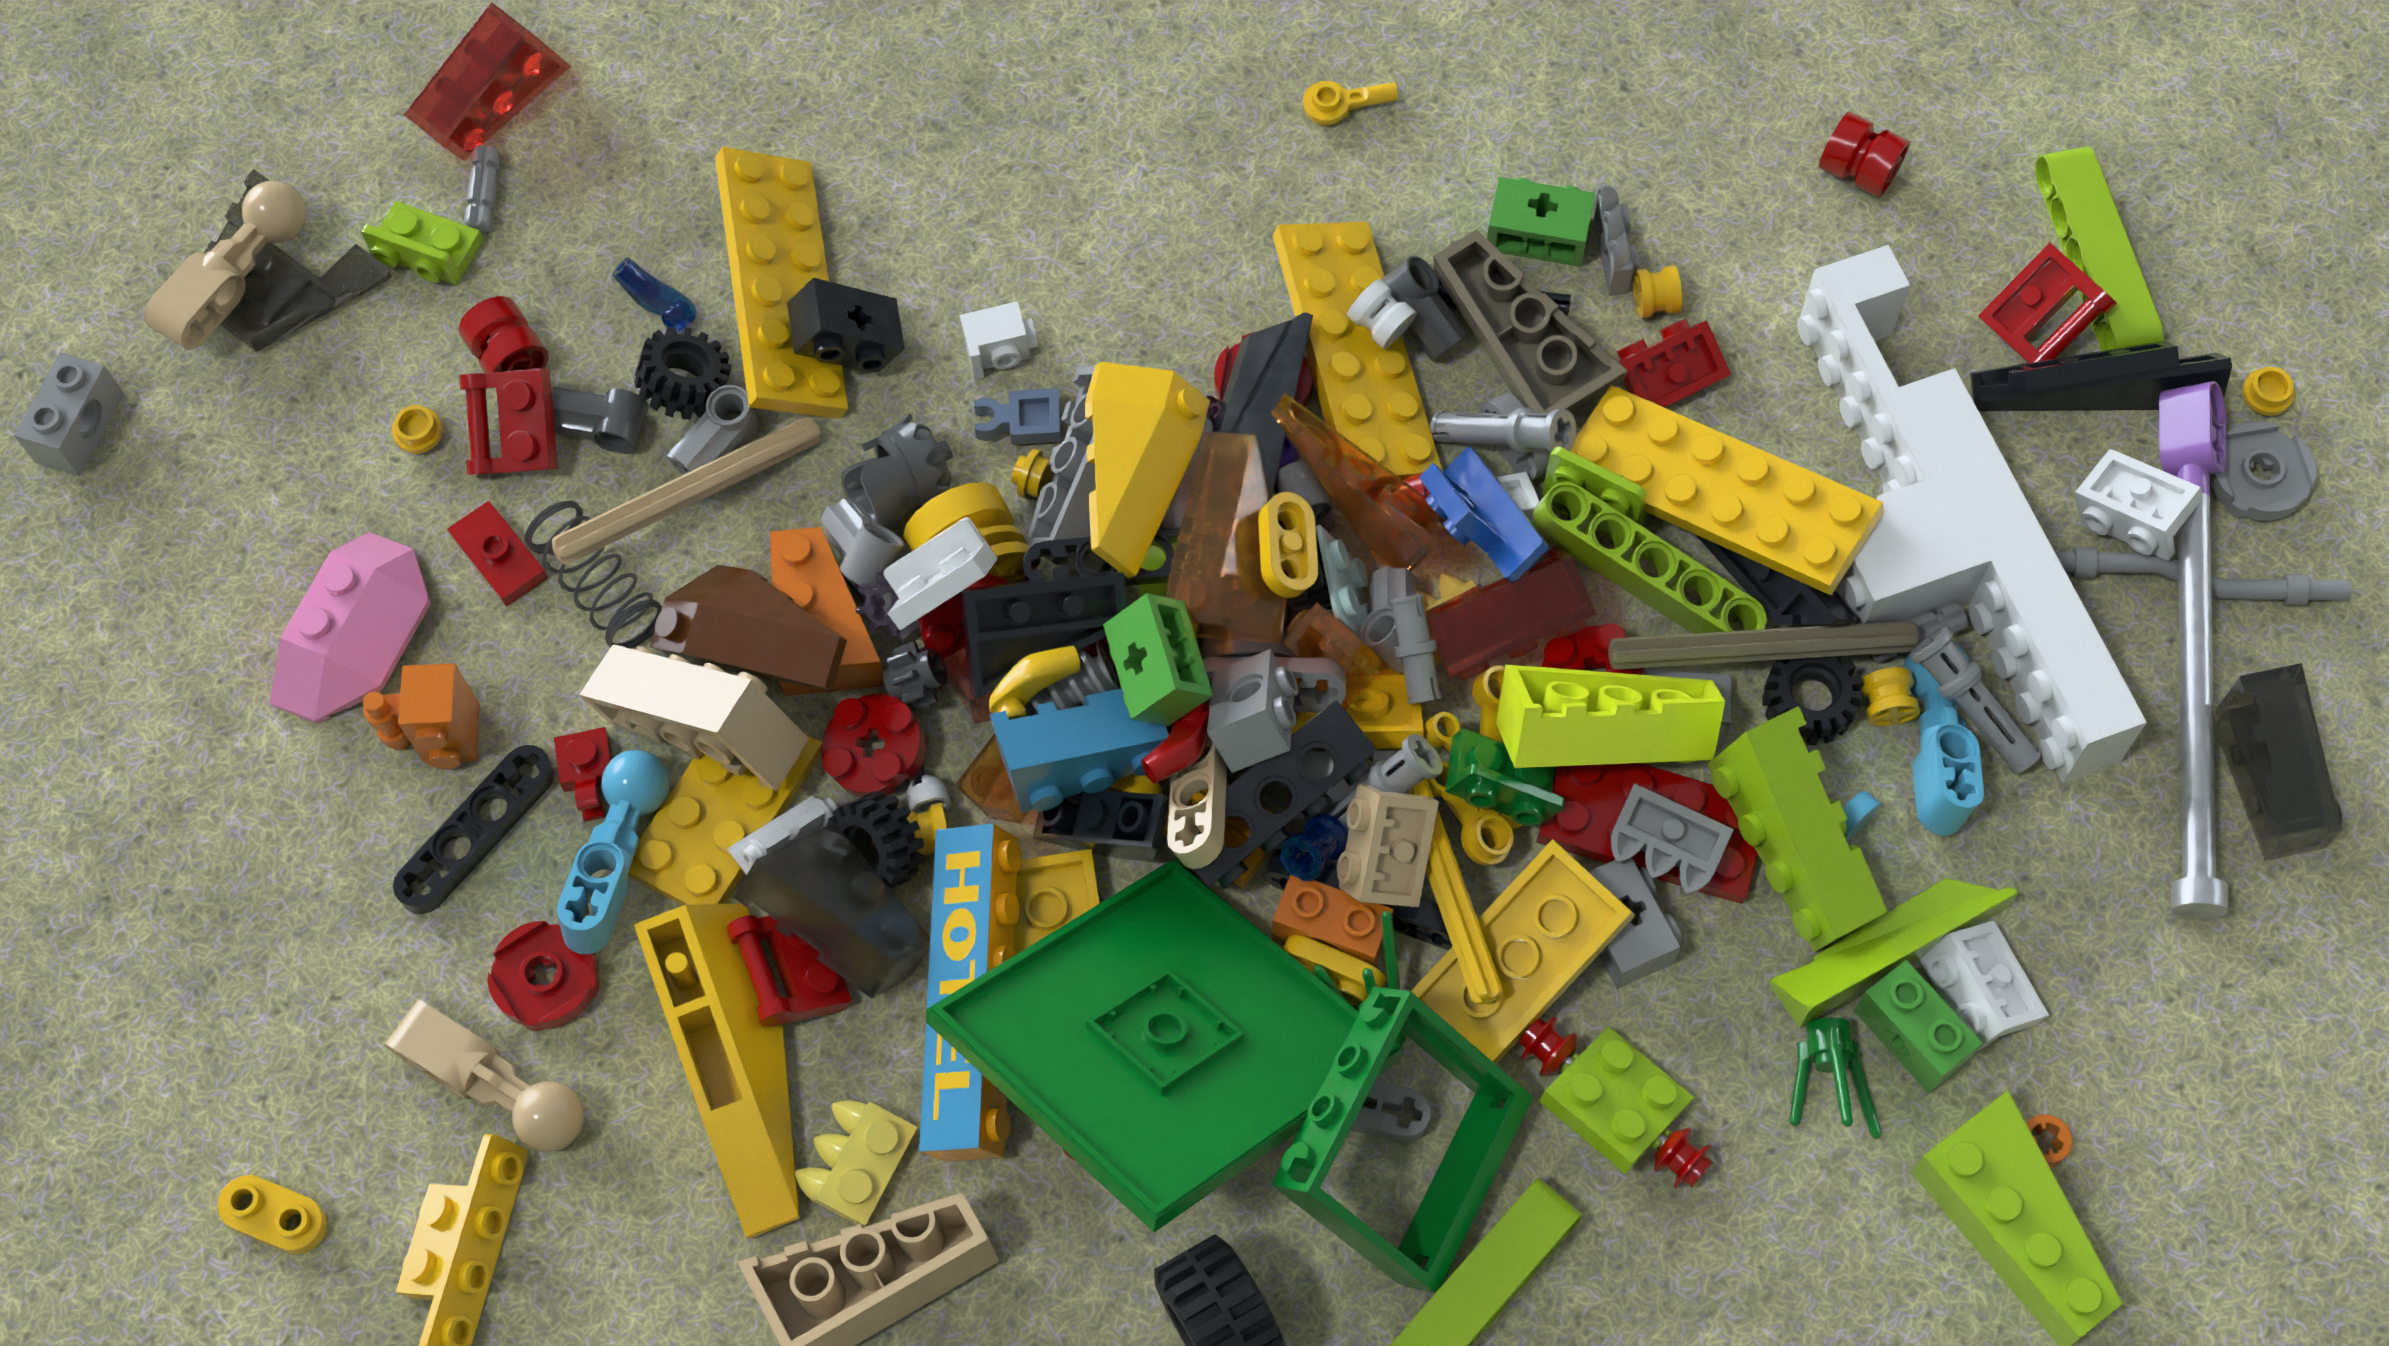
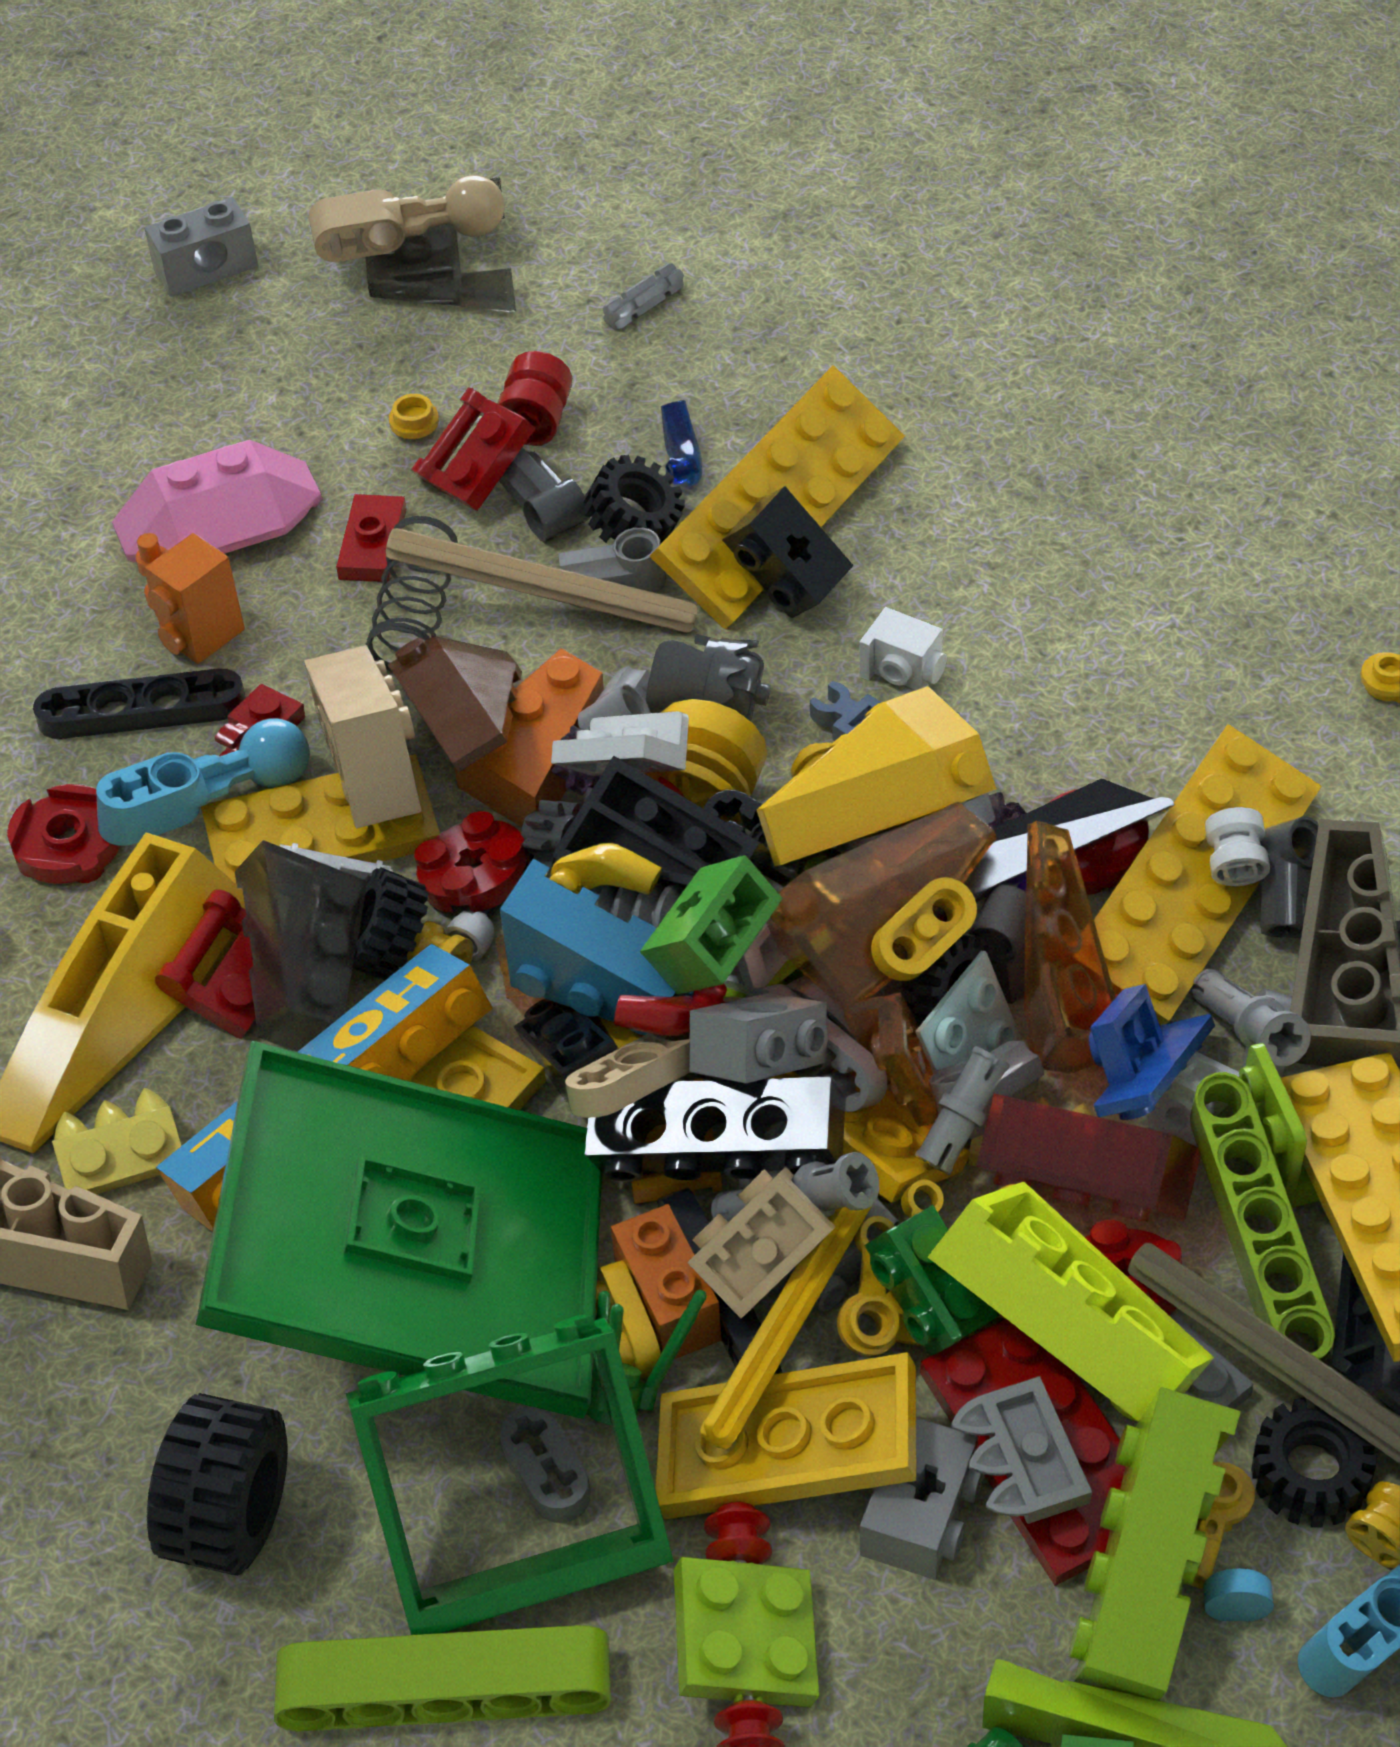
camera: 45 degrees right, 15 degrees down
(424, 243) = (560, 303): lime bracket -> none
(484, 83) = (723, 222): clear red wedge -> none
(1310, 841) = (694, 1184): clear blue bush -> none

